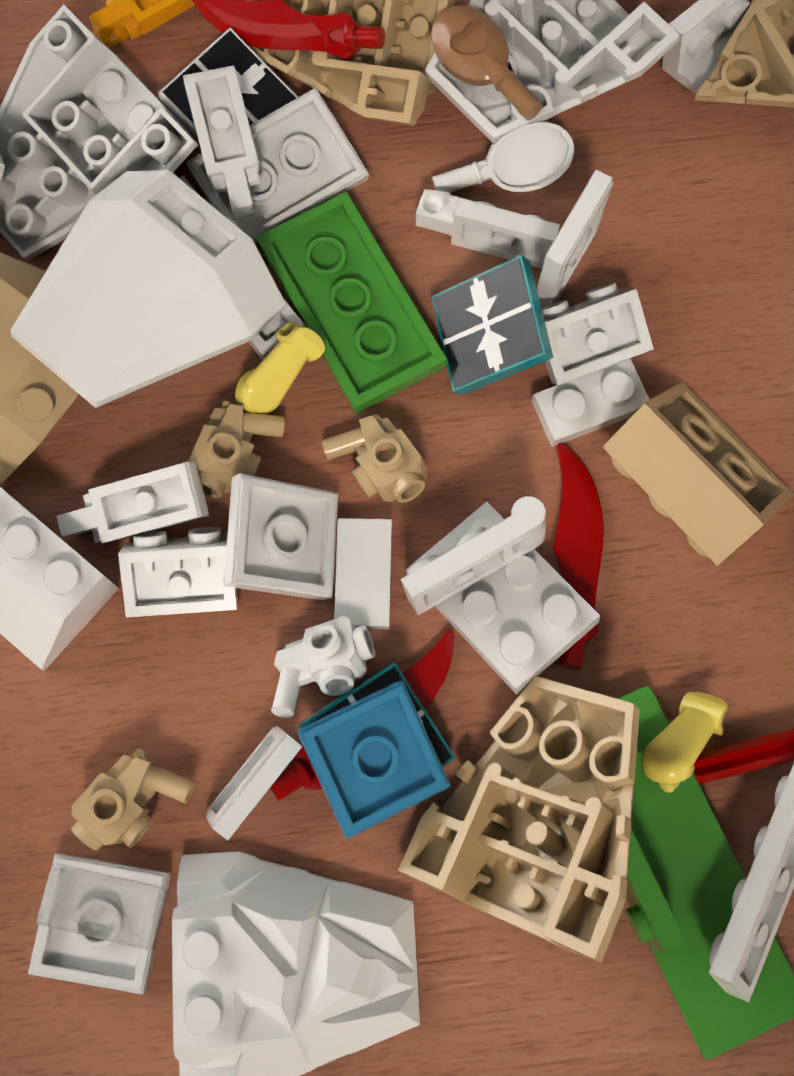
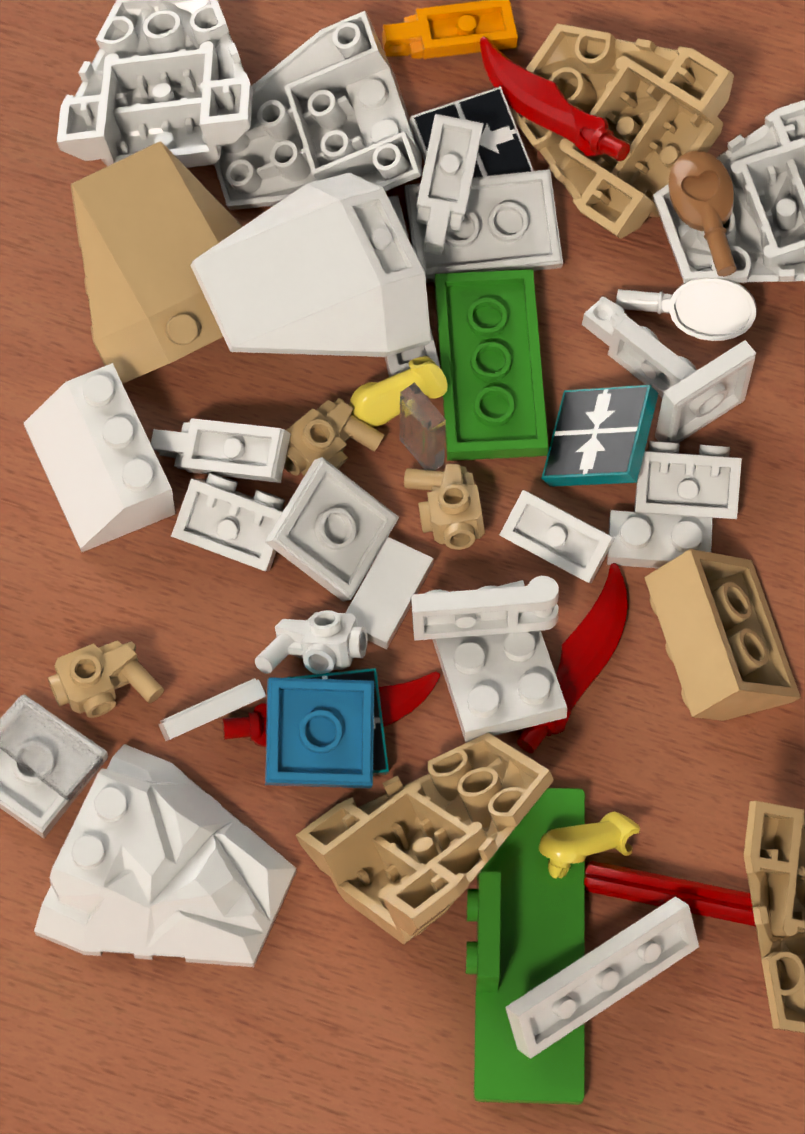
camera: 25 degrees right, 10 degrees down
(321, 395) = (422, 428): none -> clear tile
(498, 443) = (557, 536): none -> white plate

